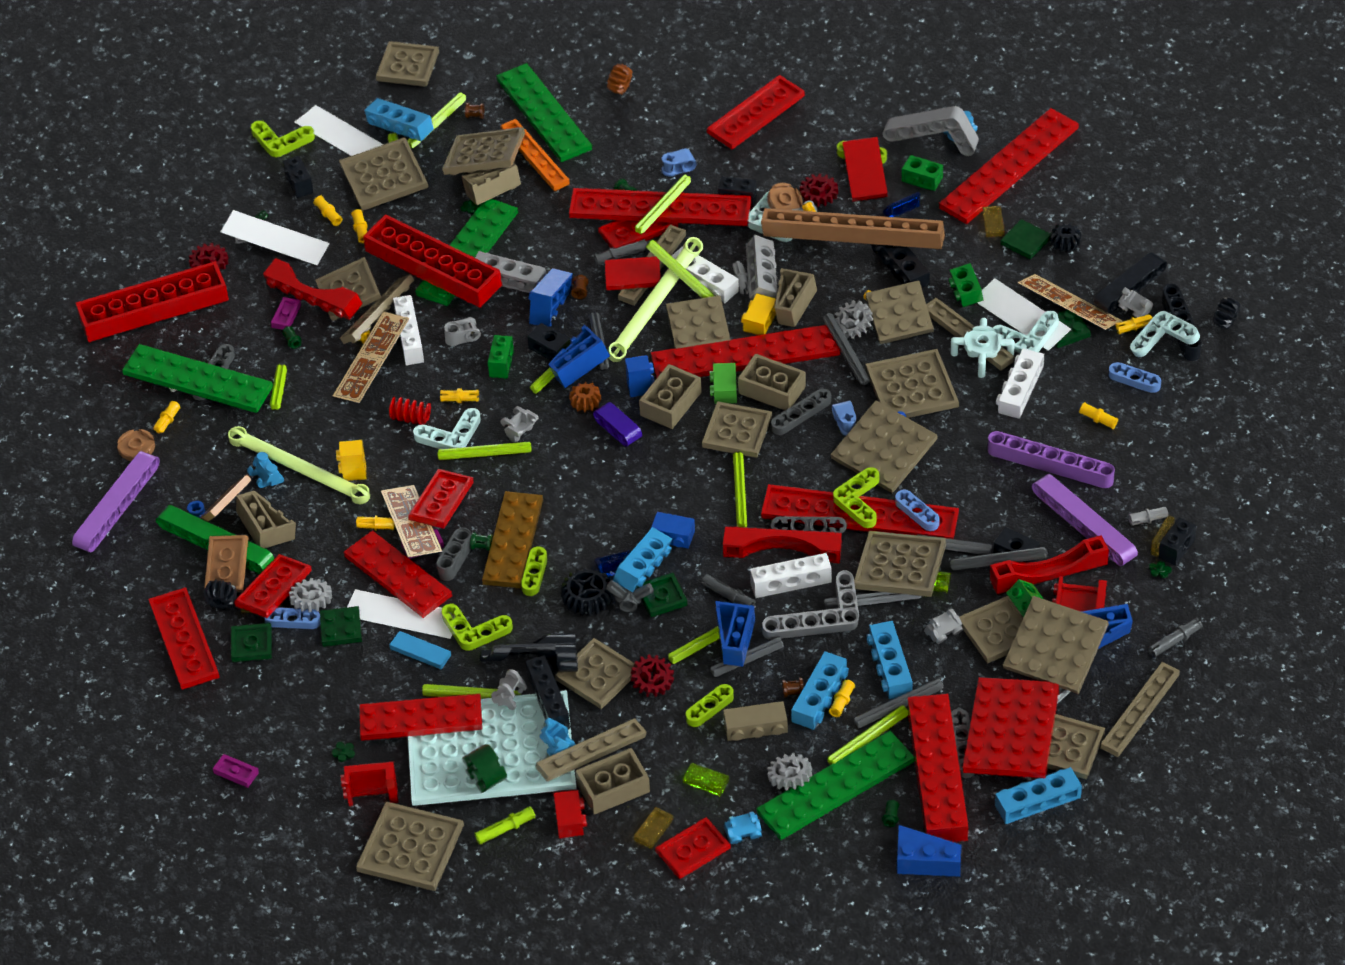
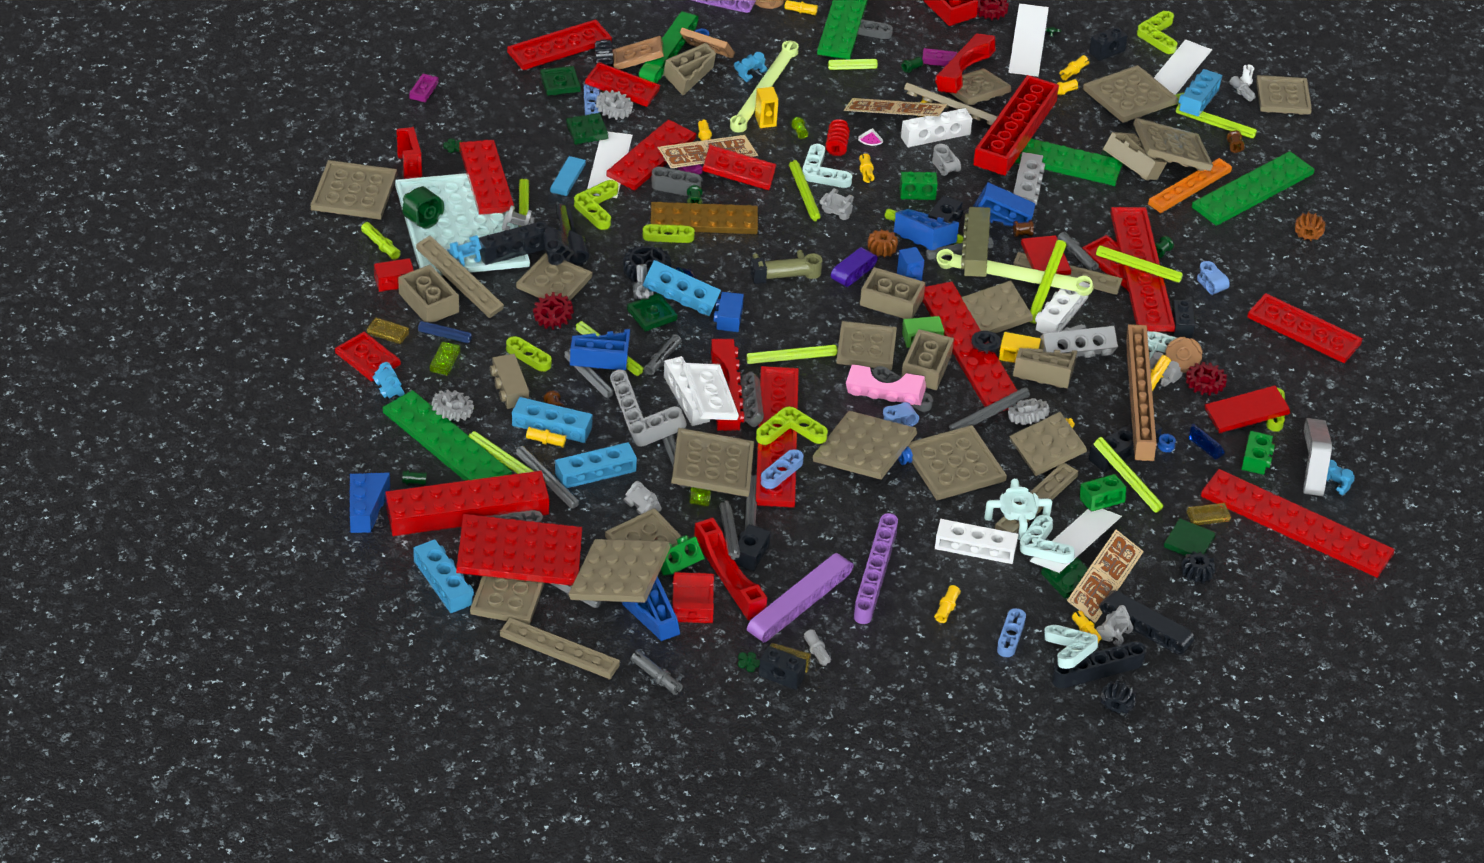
camera: 75 degrees right, 5 degrees down
(375, 85) = (1247, 74): none -> white pin
(380, 442) = (798, 124): none -> clear neon green pin
(391, 91) = (1242, 88): none -> light grey axle
(410, 387) = (870, 138): none -> tile
(609, 317) = (976, 241): none -> olive brick
(611, 478) = (801, 266): none -> olive piece
(665, 776) = (445, 332): none -> dark blue axle
(752, 329) = (982, 337): none -> black gear
(796, 434) = (907, 389): none -> bright pink arch
(810, 548) = (710, 391): none -> white tile
(949, 261) = (1127, 473): none -> lime axle

